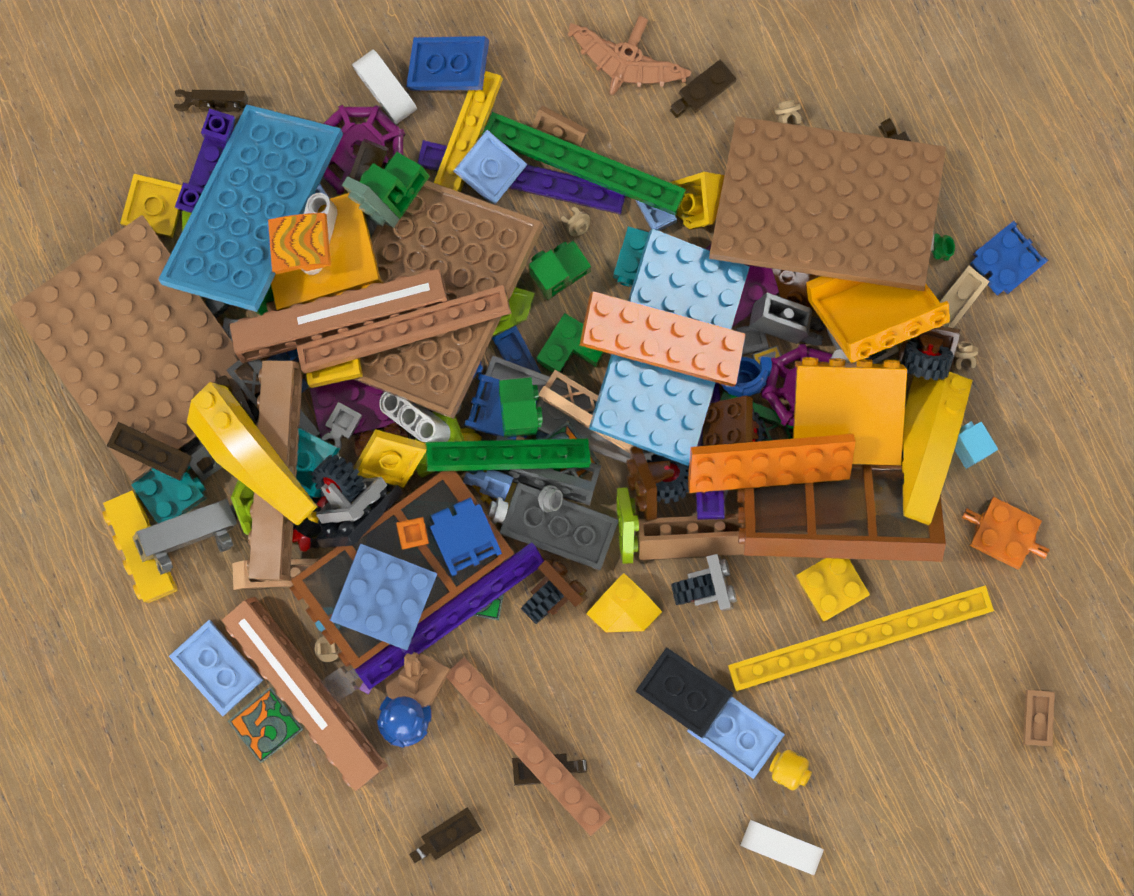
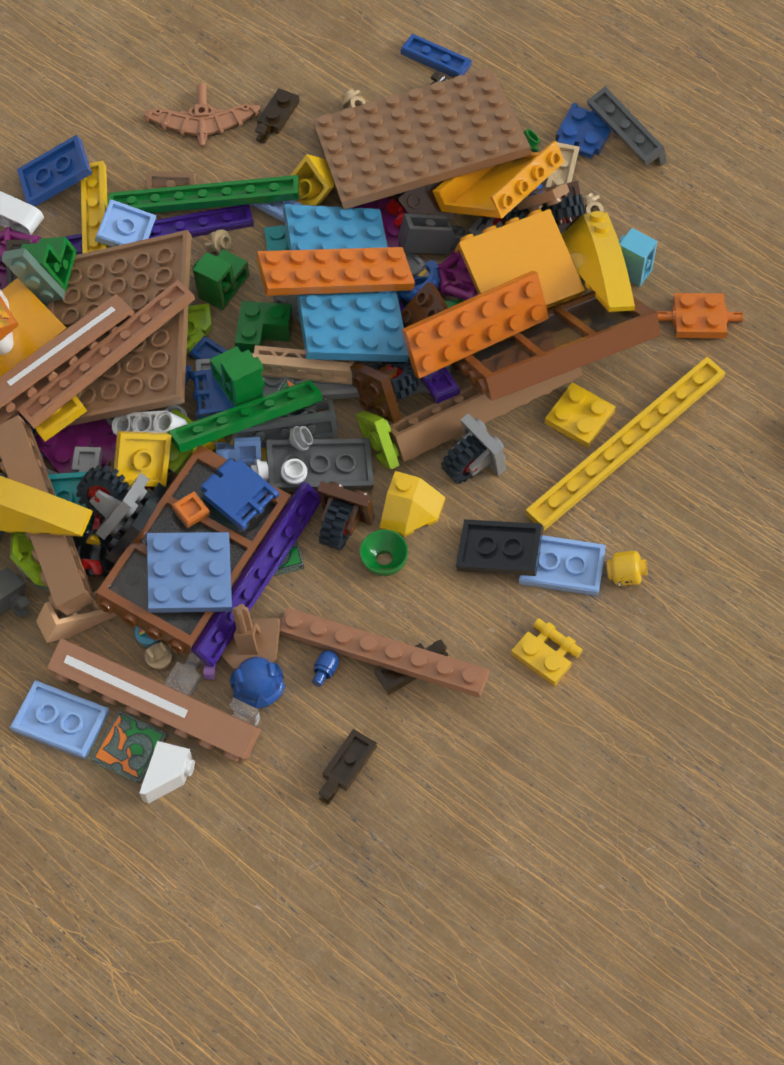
camera: 25 degrees left, 20 degrees down
(288, 766) = (166, 771): none -> white slope
(379, 744) = (244, 711): none -> clear tile
(471, 732) = (325, 667): none -> blue cylinder
(528, 529) = (294, 471): none -> white plate
(571, 632) = (384, 542): none -> green piece
(669, 816) = (543, 659): none -> yellow plate
(766, 286) = (395, 209): none -> red piece
(782, 847) = (655, 635): white beam -> none
(901, 93) = (435, 56): none -> blue tile
(912, 353) = (550, 195): none -> medium nougat plate
(1047, 283) = (627, 127): none -> dark grey fence

